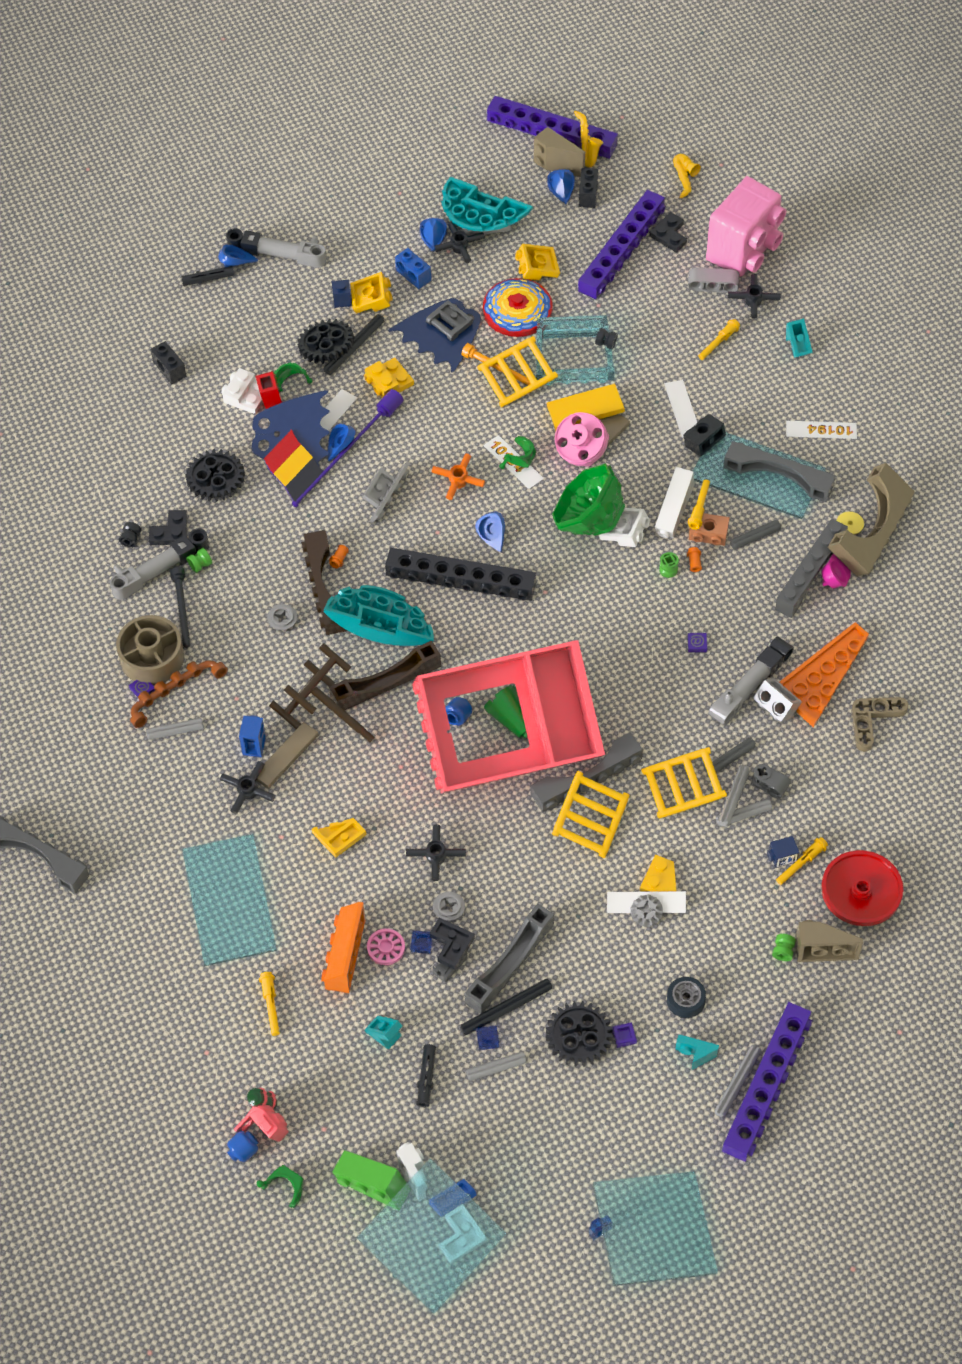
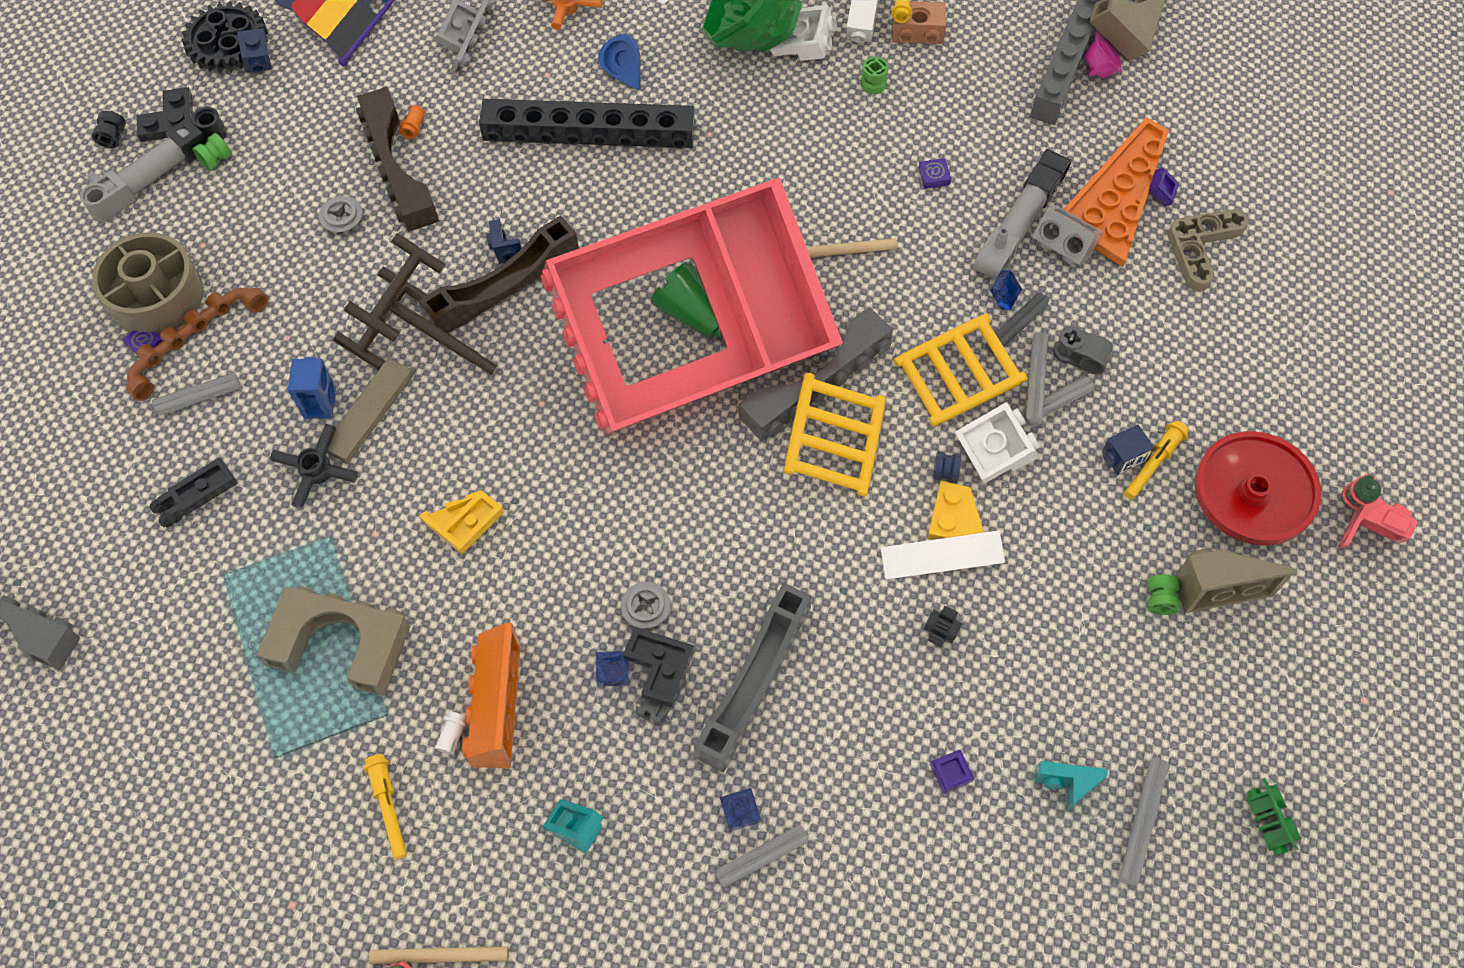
camera: 10 degrees left, 5 degrees up
(168, 793) = (193, 492): none -> black hinge
(178, 575) = (183, 177): black piece -> none
(233, 879) = (304, 612): none -> dark tan arch
(235, 489) = (254, 50): none -> dark blue bracket
(280, 1091) = (436, 955): none -> tan piece
(315, 966) = (451, 733): none -> white pin
(379, 616) = (476, 190): teal brick -> none
(385, 947) = (557, 684): bright pink wheel -> none
(386, 651) = (497, 240): none -> dark blue bracket
(424, 1097) = (653, 930): black pin -> none
(436, 859) = (616, 535): black bar -> none
(458, 711) = (615, 311): blue head -> none
(506, 1006) = (760, 754): black axle -> none
(582, 1050) = (872, 754): black gear -> none
(624, 688) = (853, 247): none -> tan piece
(636, 946) = (942, 626): none -> black gear
(652, 917) = (935, 578): light grey gear -> none
(661, 845) = (947, 466): none -> dark blue wheel
(690, 988) = (1032, 680): wheel -> none
(694, 559) = (905, 59): orange pin -> none
(698, 834) = (998, 442): none -> white plate
(727, 732) = (1006, 289): none -> clear blue plate
(734, 1143) = (1163, 928): dark purple brick -> none
(755, 534) = (981, 23): dark grey axle -> none
(817, 1085) = (1265, 801): none -> green hinge
(855, 674) = (1164, 186): none -> dark purple tile
(934, 915) = (1374, 513): none -> coral piece

